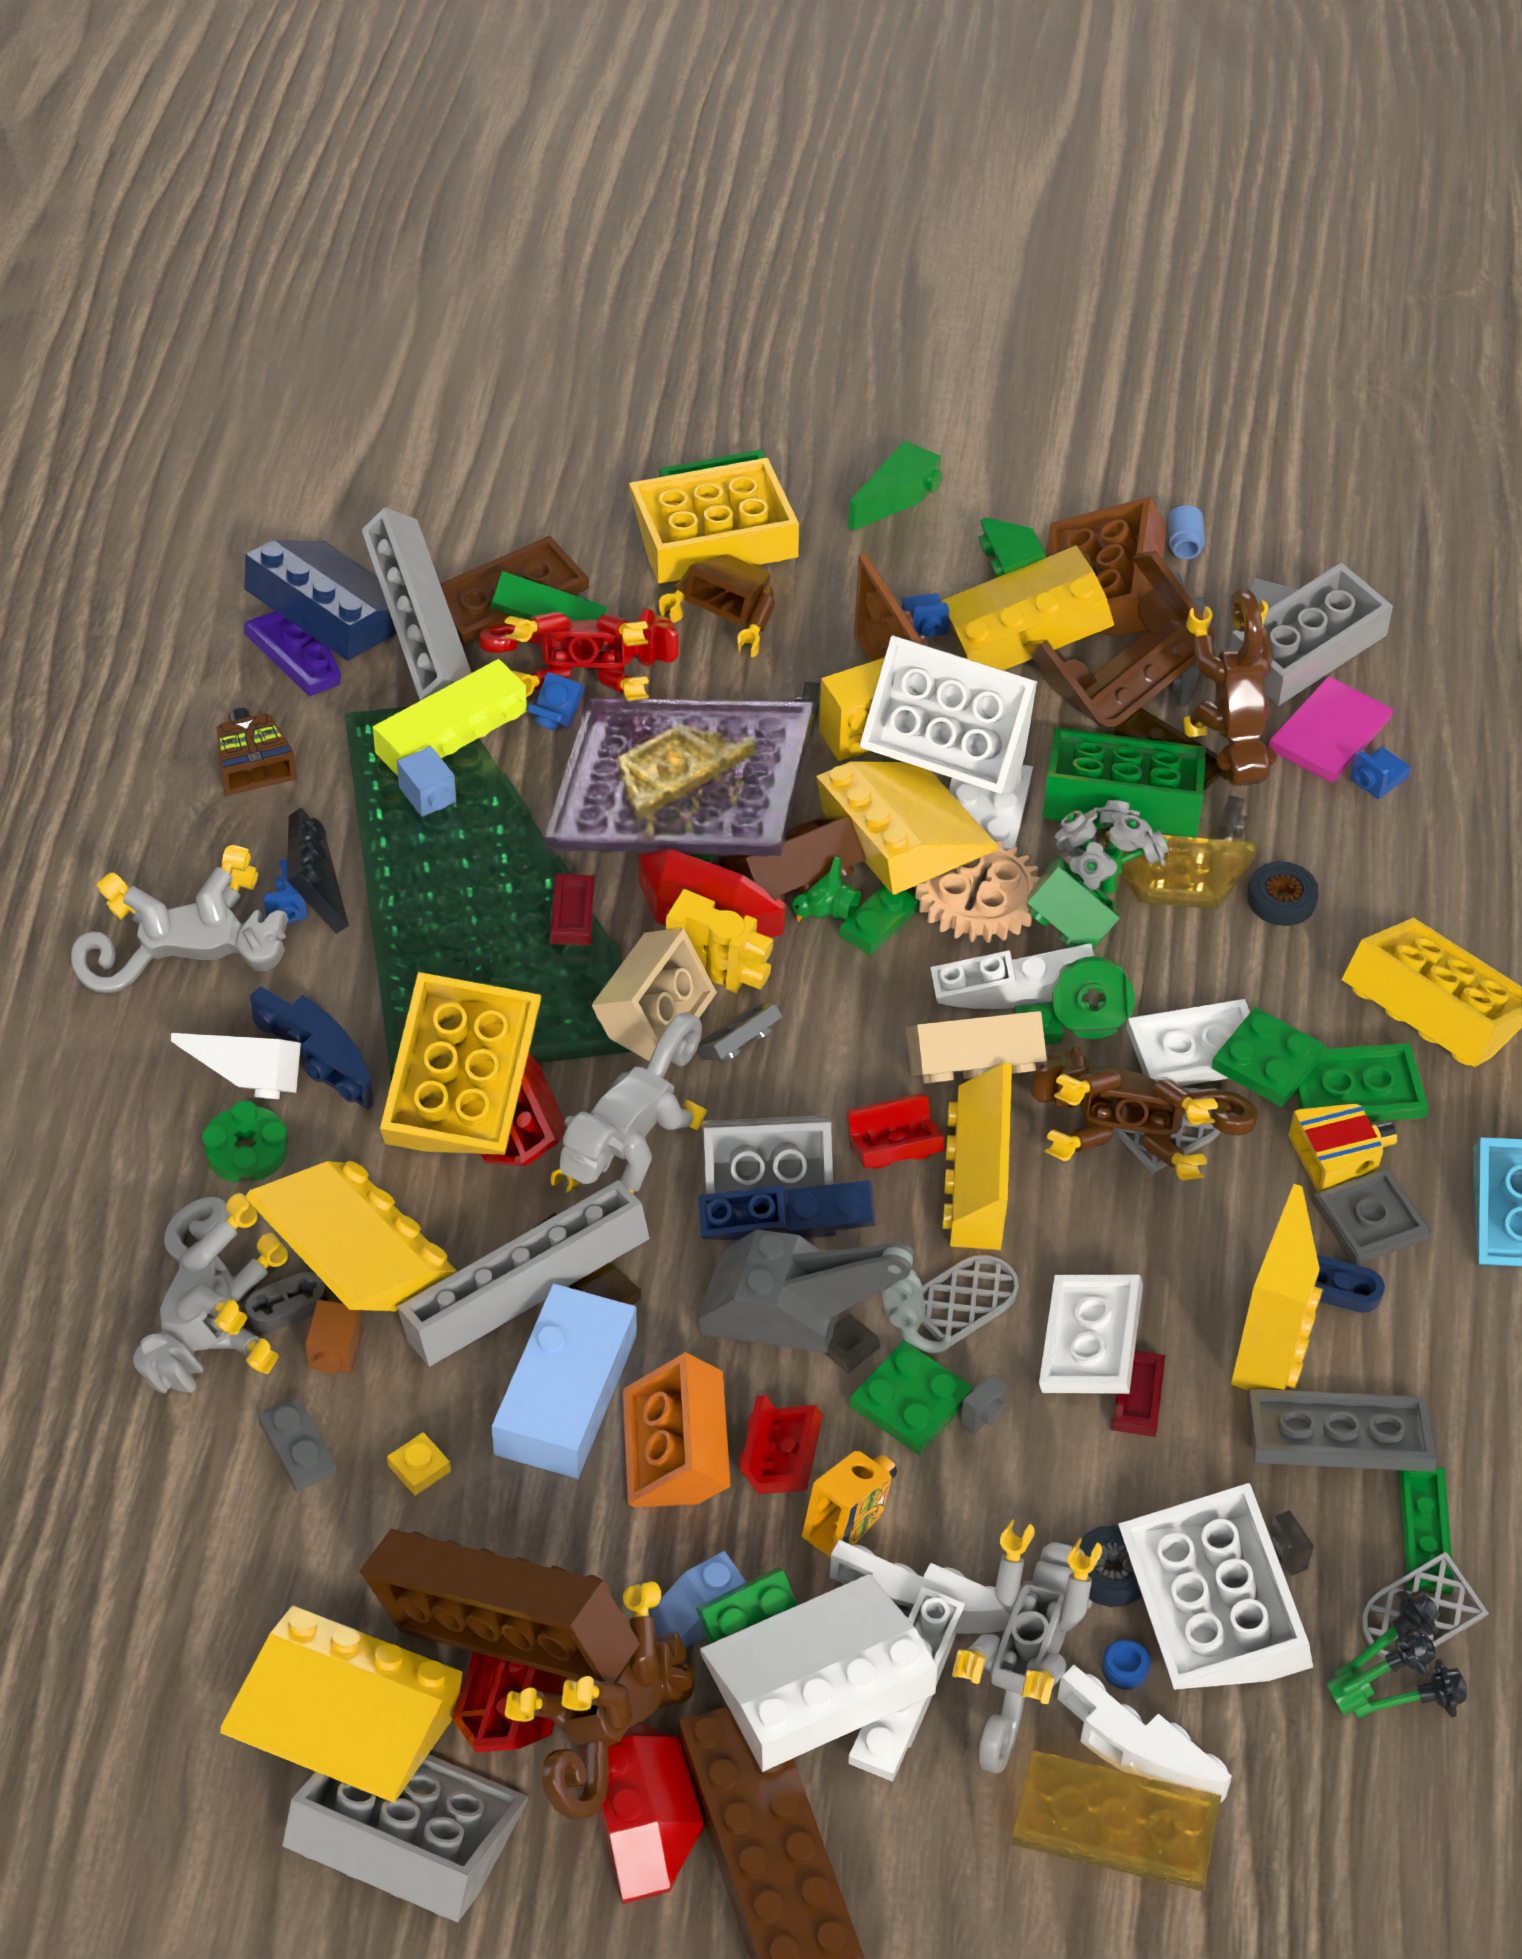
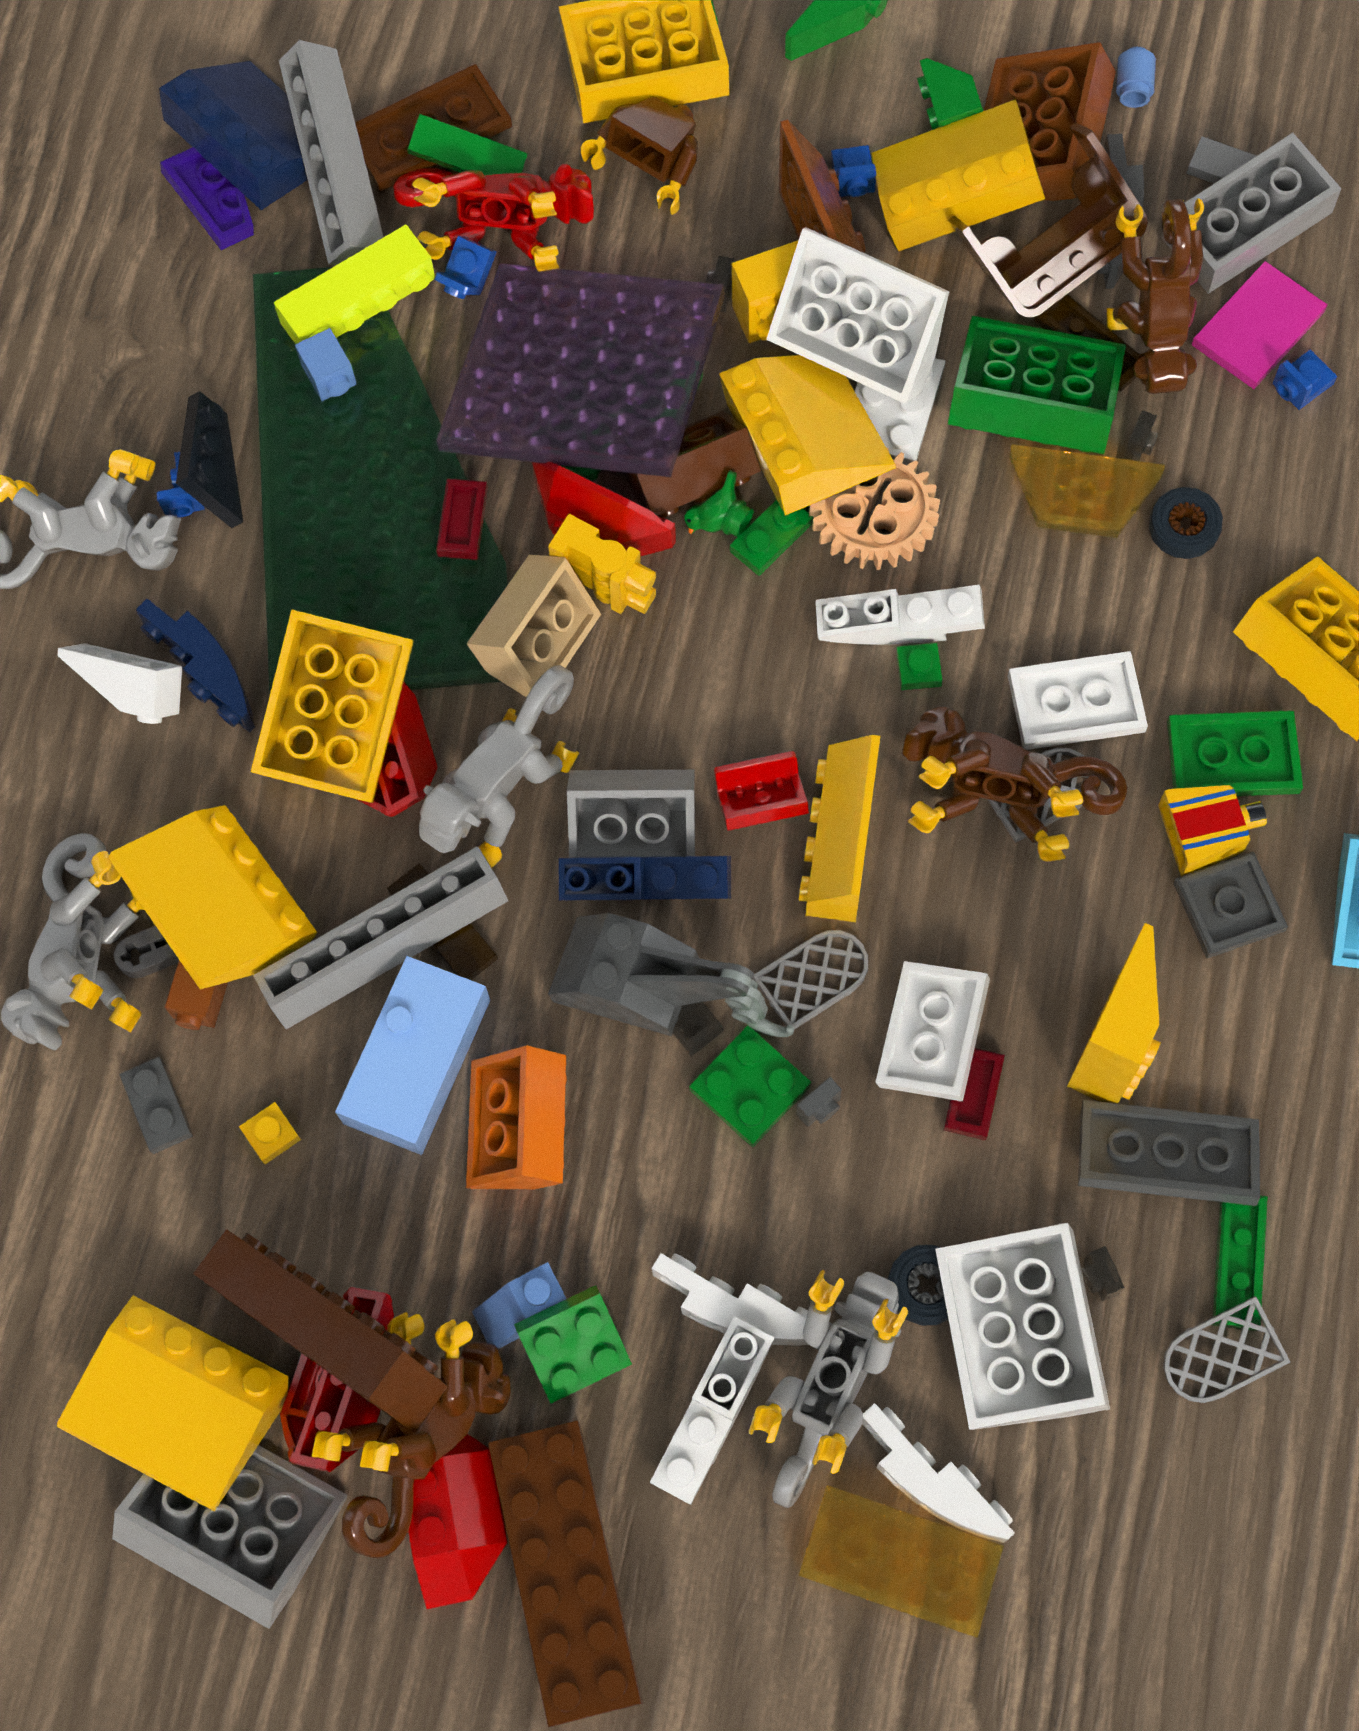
camera: 10 degrees right, 20 degrees up
(240, 1123) = (120, 746): green plate -> none
(253, 752) = (157, 317): reddish brown torso -> none
(677, 764) = (575, 362): clear yellow wing -> none
(747, 1026) = (607, 672): dark grey plate -> none
(780, 1446) = (615, 1138): red bracket -> none
(820, 1670) = (621, 1406): white slope -> none
(847, 1500) = (676, 1206): light orange torso -> none
(975, 1046) = (850, 702): tan brick -> none
(1071, 906) = (967, 535): slope -> none
(1110, 1012) = (975, 625): green plate -> none
(1125, 834) = (1027, 467): light grey plant -> none
(1125, 1664) = (928, 1390): blue tile -> none
(1268, 1056) = (1146, 723): green plate -> none
(1345, 1279) = (1189, 981): dark blue plate -> none
(1413, 1650) = (1206, 1422): black plant -> none

